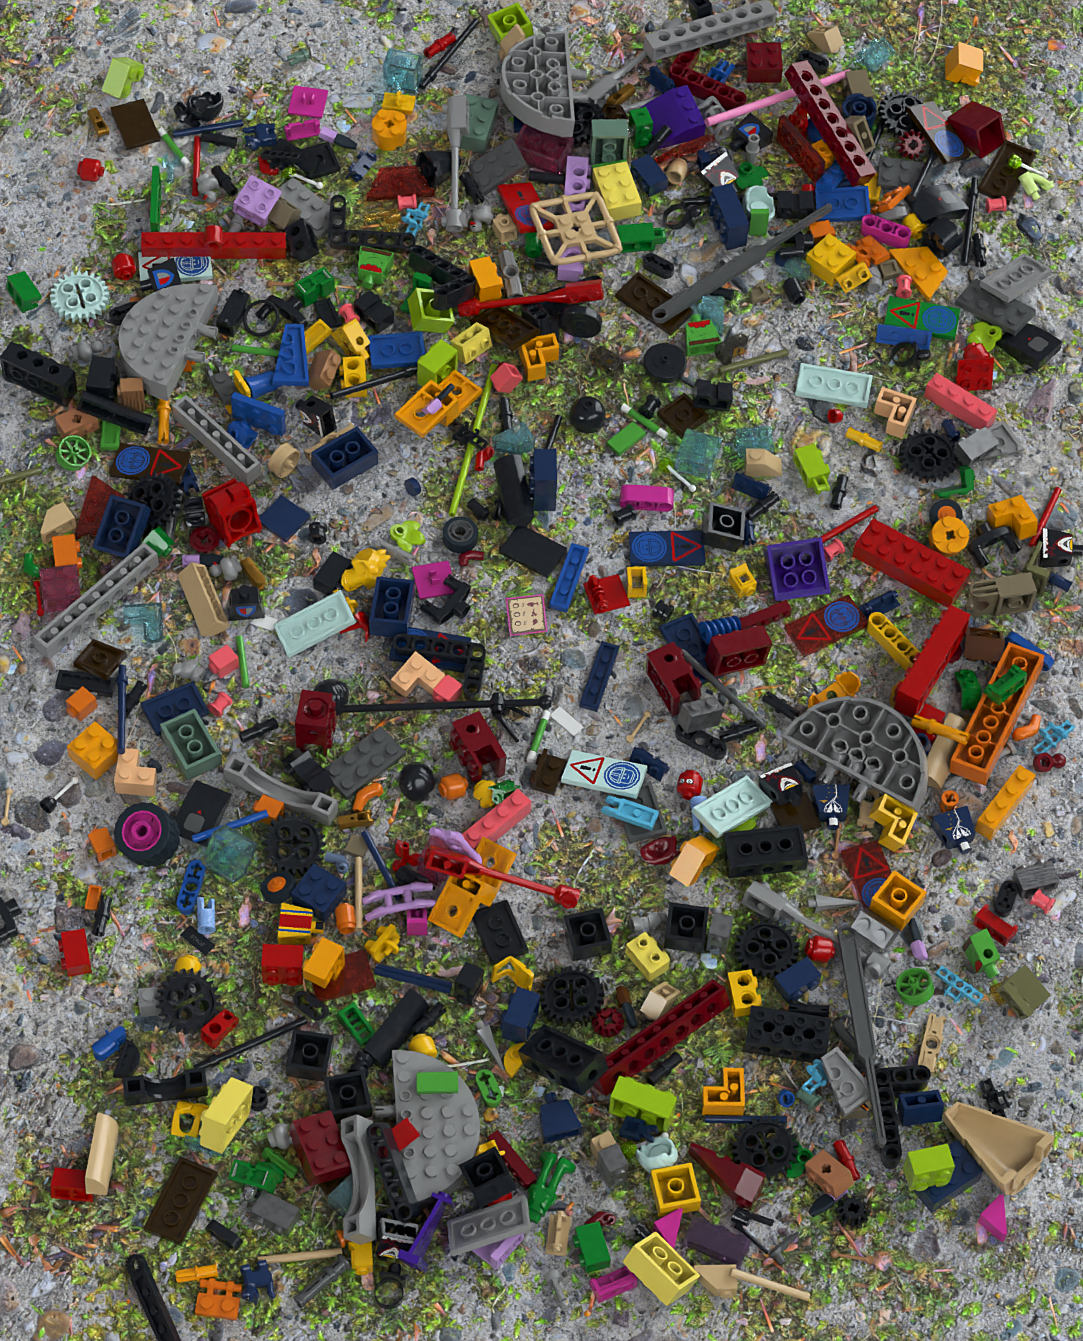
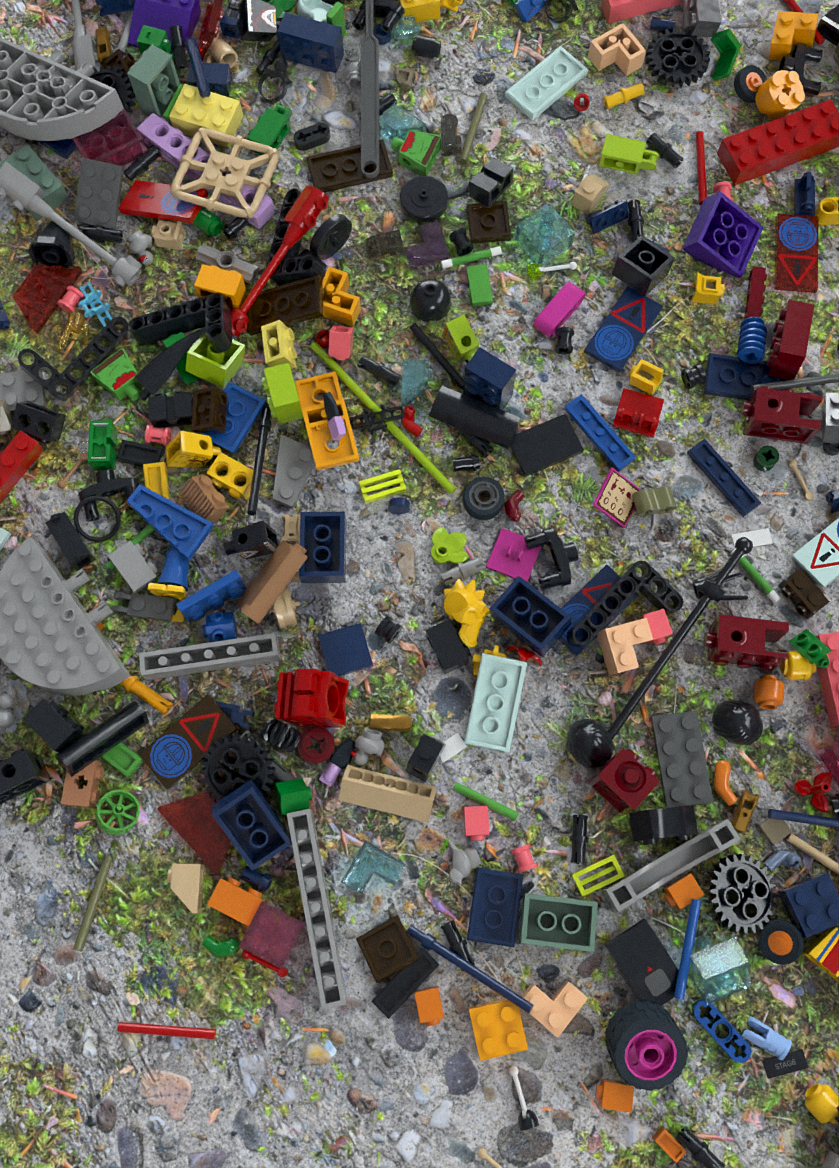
camera: 50 degrees left, 15 degrees up
(89, 559) = (256, 878): none -> dark blue pin
(131, 393) = (93, 706): medium nougat brick -> none
(244, 357) = (133, 567): none -> light grey brick
(259, 758) = (579, 884): none -> neon yellow tile
(292, 435) = (272, 580): none -> medium nougat door
(383, 410) = (292, 471): none -> light grey wing
(389, 331) = (209, 410): none -> dark brown bracket
(394, 284) = (159, 370): none -> black piece
(423, 468) = (377, 479): none -> neon yellow tile
(542, 639) = (654, 501): none -> olive axle
(568, 448) = (460, 339): none -> lime torso
(631, 393) = (432, 249): none -> clear purple plate
(633, 697) = (761, 459): none -> dark green wheel
(645, 160) = (197, 67): none -> dark blue axle
(754, 439) = (562, 183): clear light blue bracket -> none

